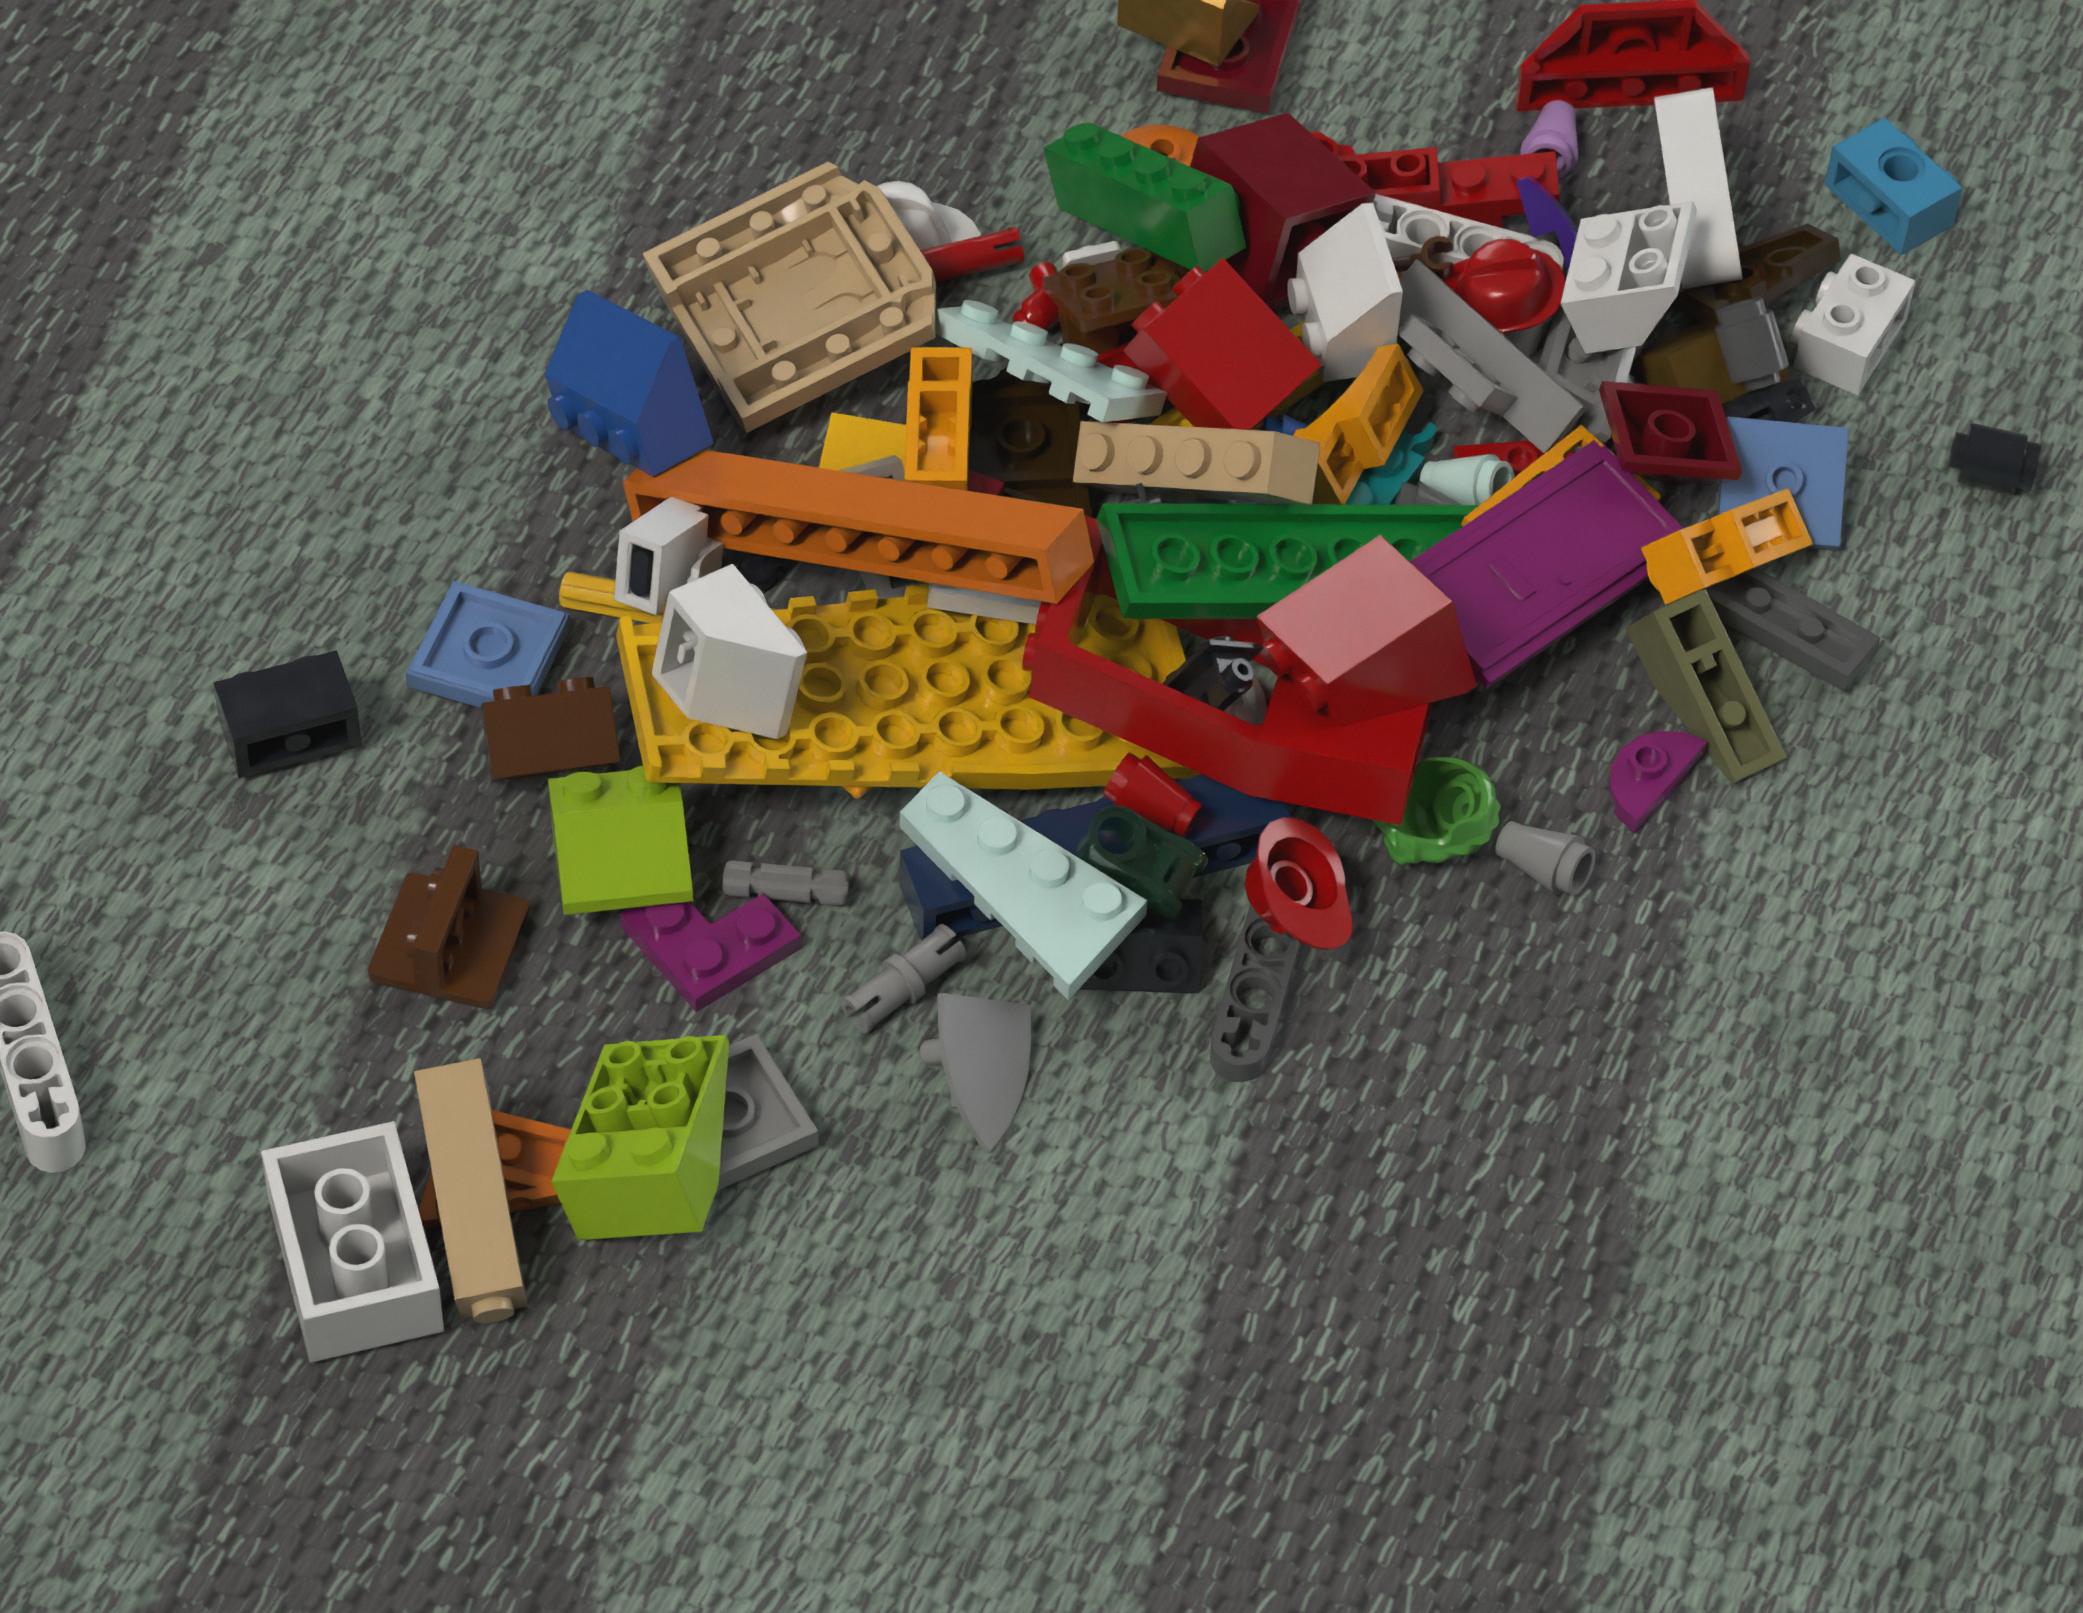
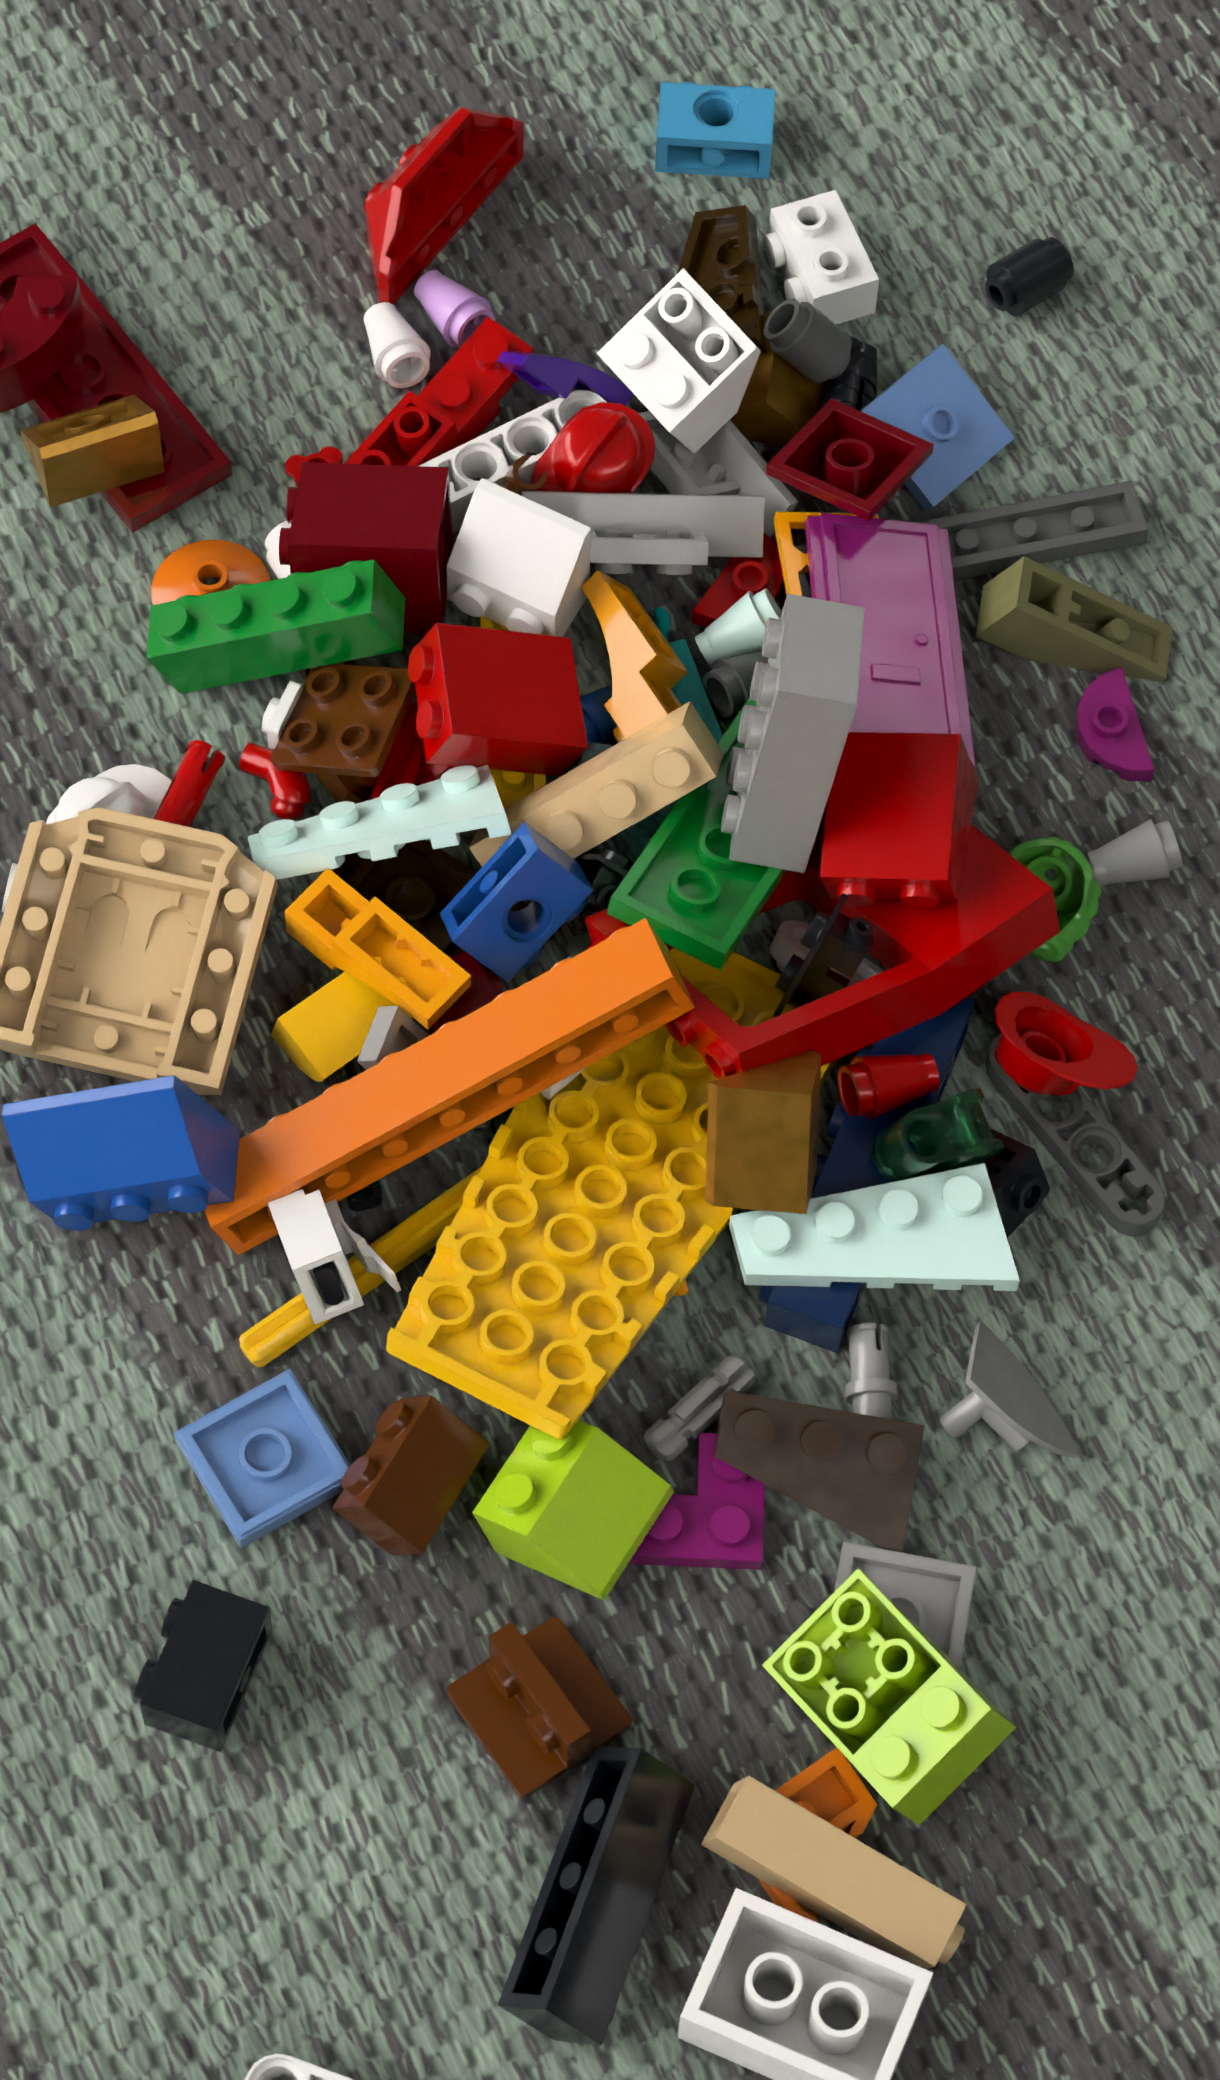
camera: 50 degrees left, 10 degrees up
(322, 1059) = (598, 1898): none -> black brick
(729, 655) = (537, 1284): white slope -> none
(808, 976) = (828, 1459): none -> dark brown wing
(1016, 735) = (764, 1136): none -> pearl gold slope
(1089, 456) = (518, 871): none -> blue brick
(1330, 483) = (793, 732): none -> light grey piece
(1480, 127) = (395, 347): none -> white cone
(1698, 174) = (582, 224): white beam -> none
(1725, 546) = (981, 514): light orange slope -> none

